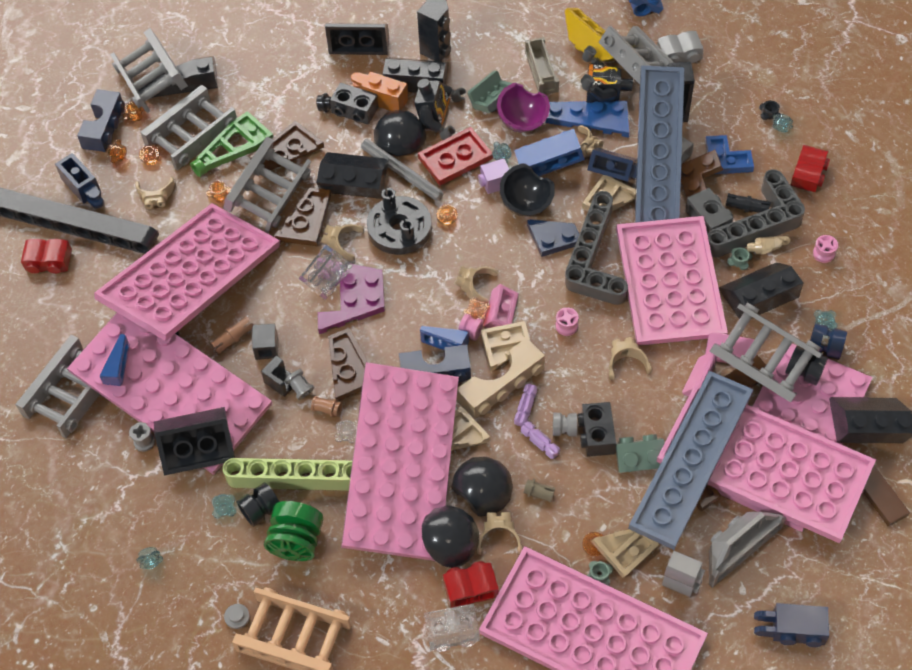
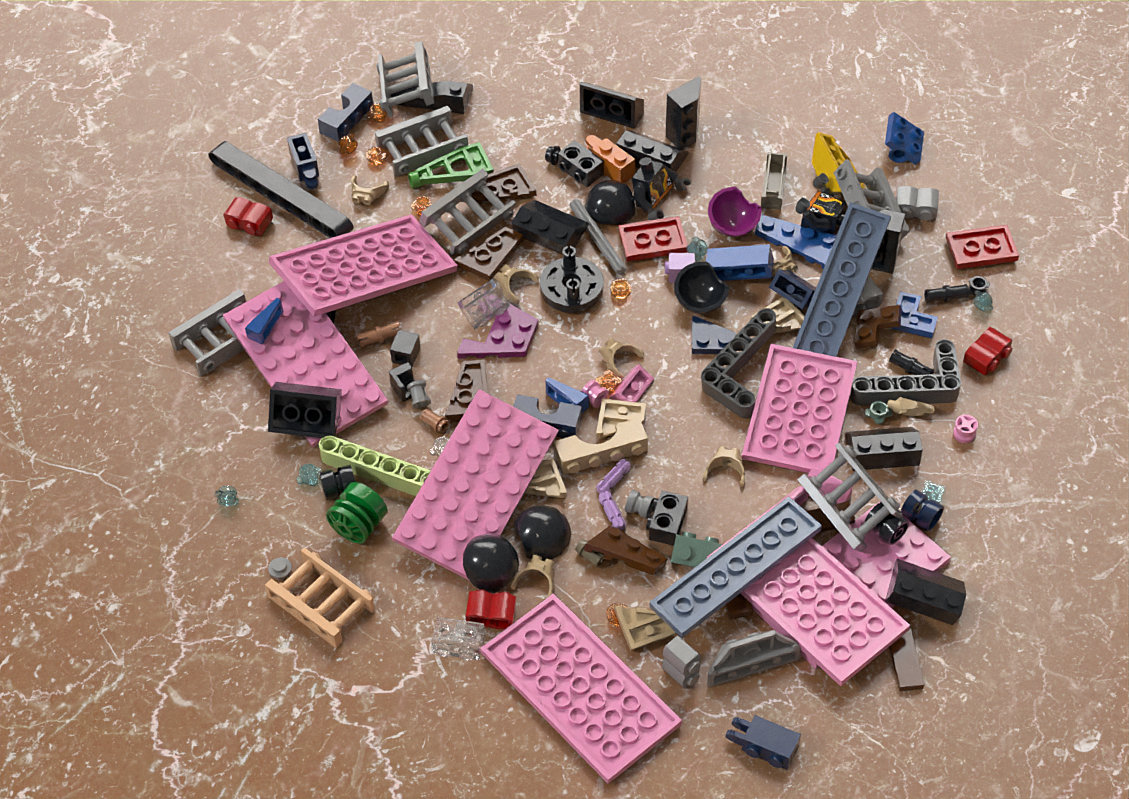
camera: 20 degrees right, 5 degrees down
(142, 437) = (262, 393): light grey bush -> none
(486, 92) = (705, 188): sand green bracket -> none
(565, 474) = (623, 547): none -> reddish brown wing
(569, 316) = (681, 413): bright pink wheel -> none
(599, 566) = (612, 633): sand green plate -> none
(710, 206) = (868, 357): dark grey brick -> none
(746, 125) = (946, 293): none -> black pin
(756, 72) = (982, 246): none -> plate

